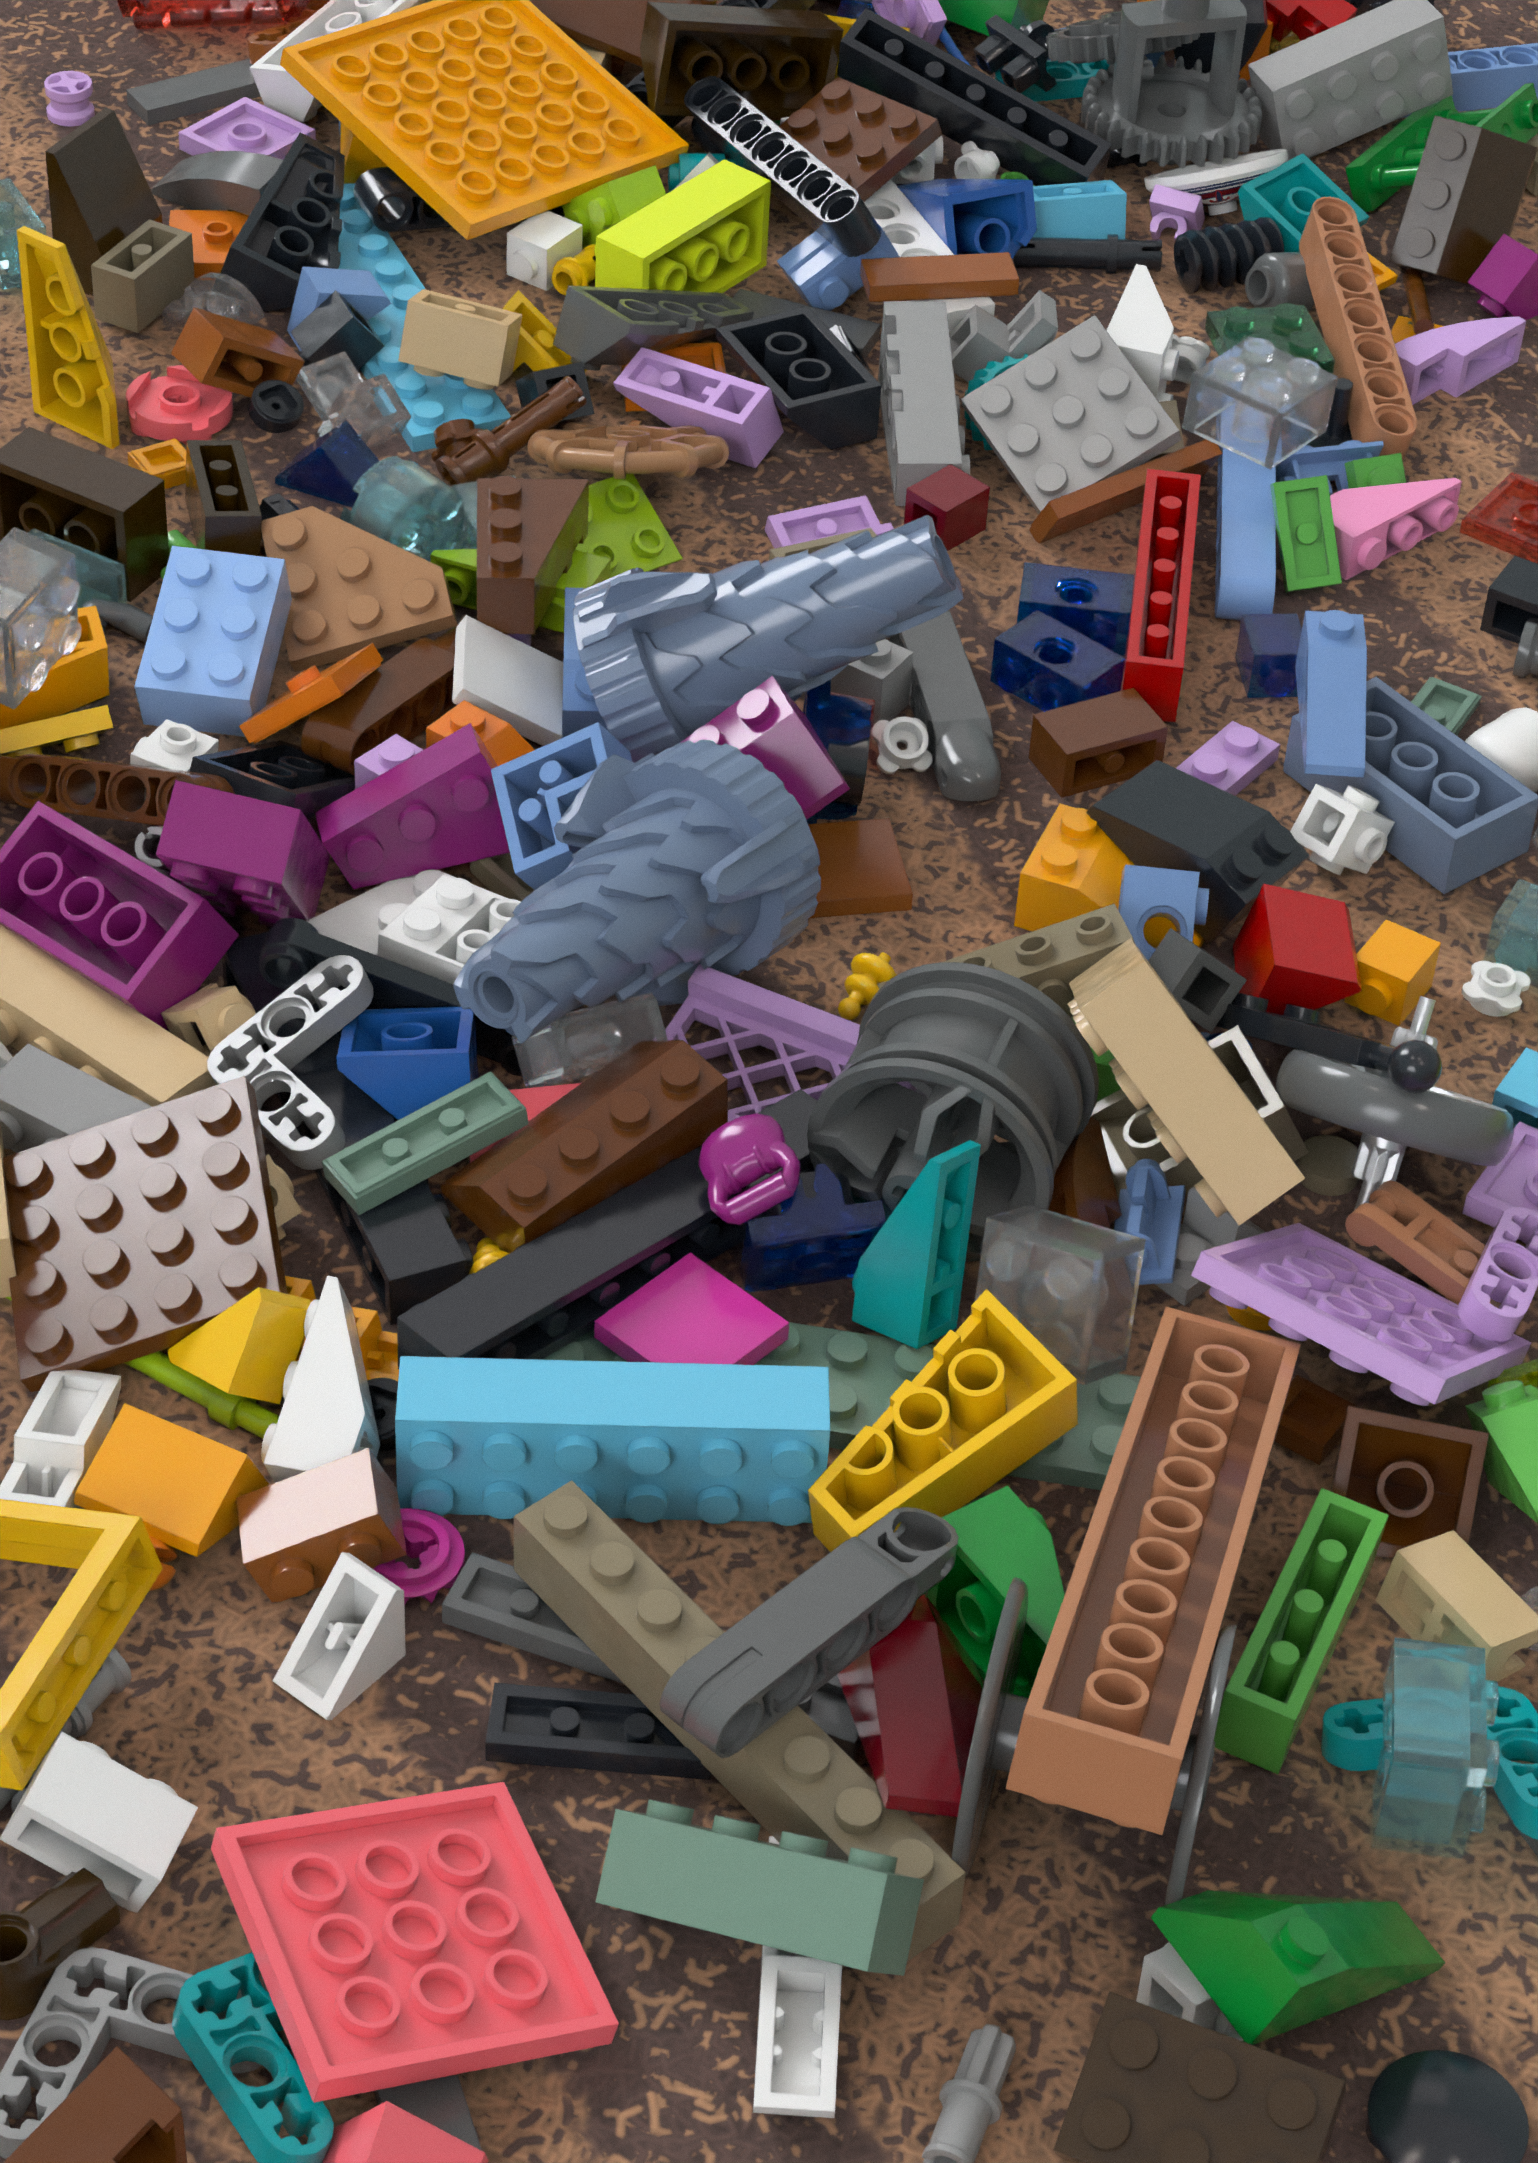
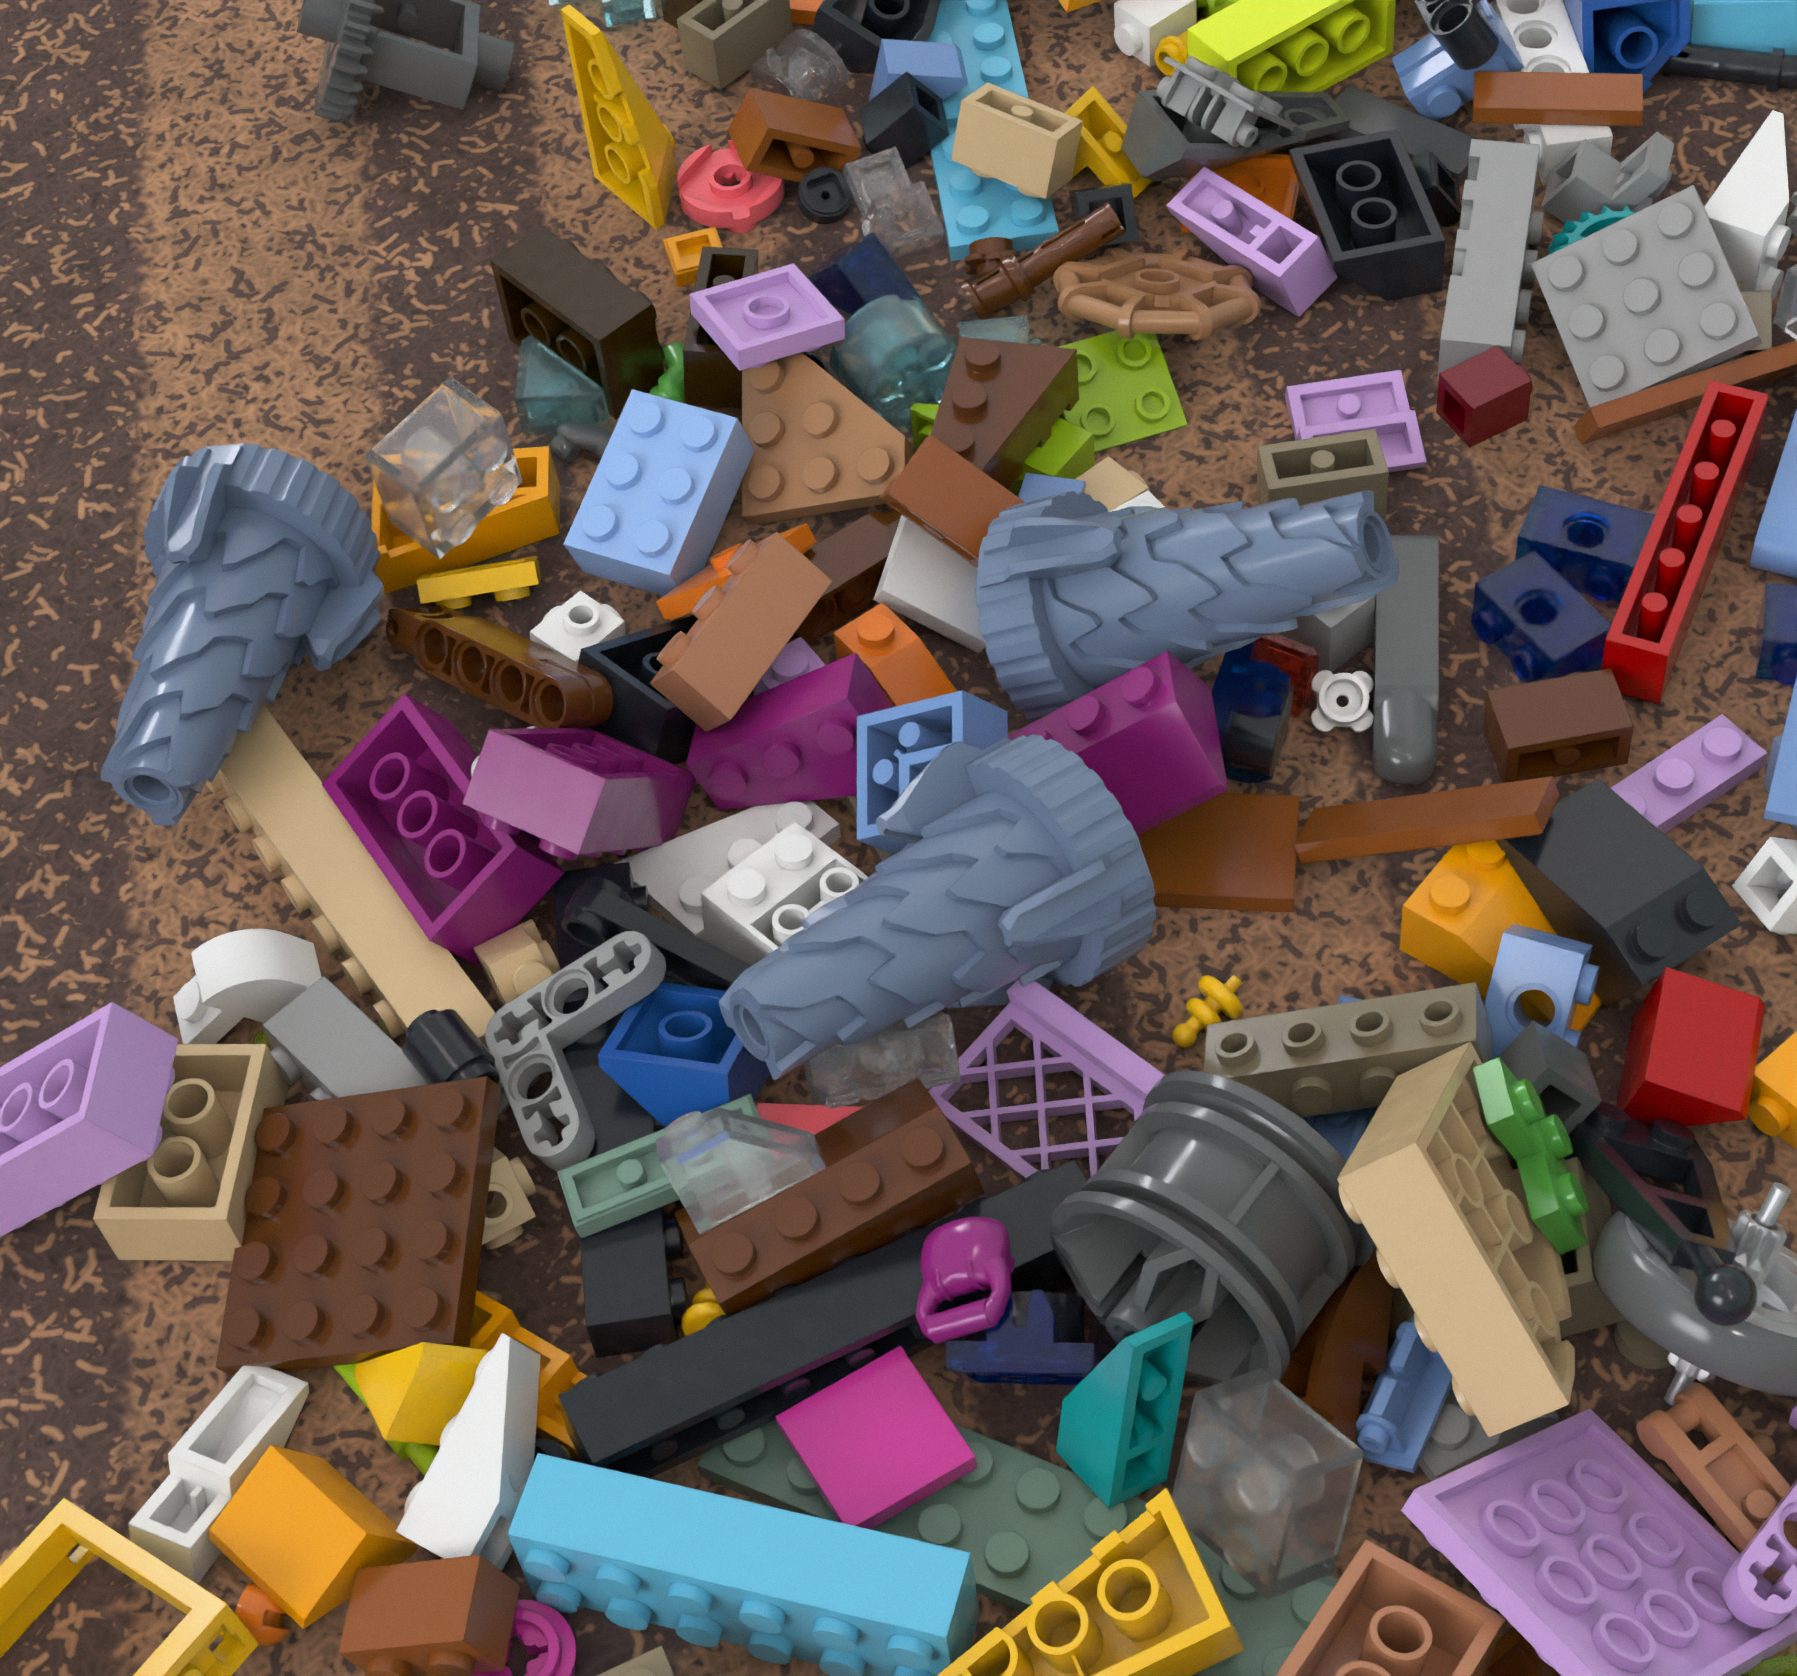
camera: 25 degrees right, 10 degrees up
(174, 1072) = (447, 1049): none -> black brick
(282, 480) = (767, 316): none -> lavender plate
(350, 720) = (739, 630): none -> nougat brick
(498, 1116) = (733, 1162): none -> clear slope
(512, 609) = (948, 498): none -> dark orange panel
(661, 293) = (1217, 101): none -> light grey hinge
(1017, 810) = (1427, 820): none -> dark orange tile
(1211, 1011) = (1539, 1147): none -> bright green plate

